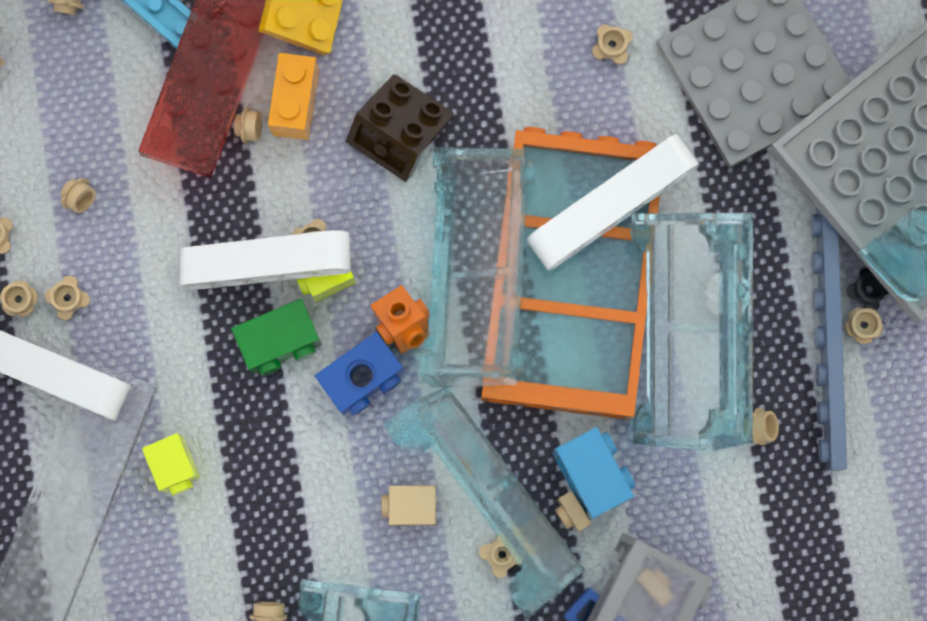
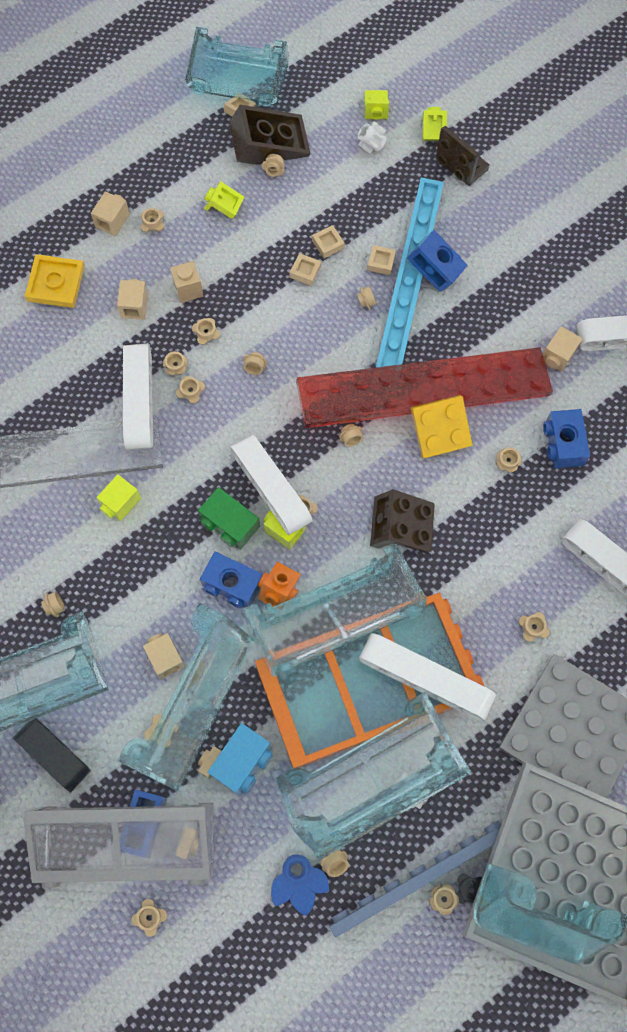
camera: 60 degrees right, 10 degrees down
(293, 96) = (383, 450): light orange brick -> none
(768, 483) = (299, 888): none -> blue plate

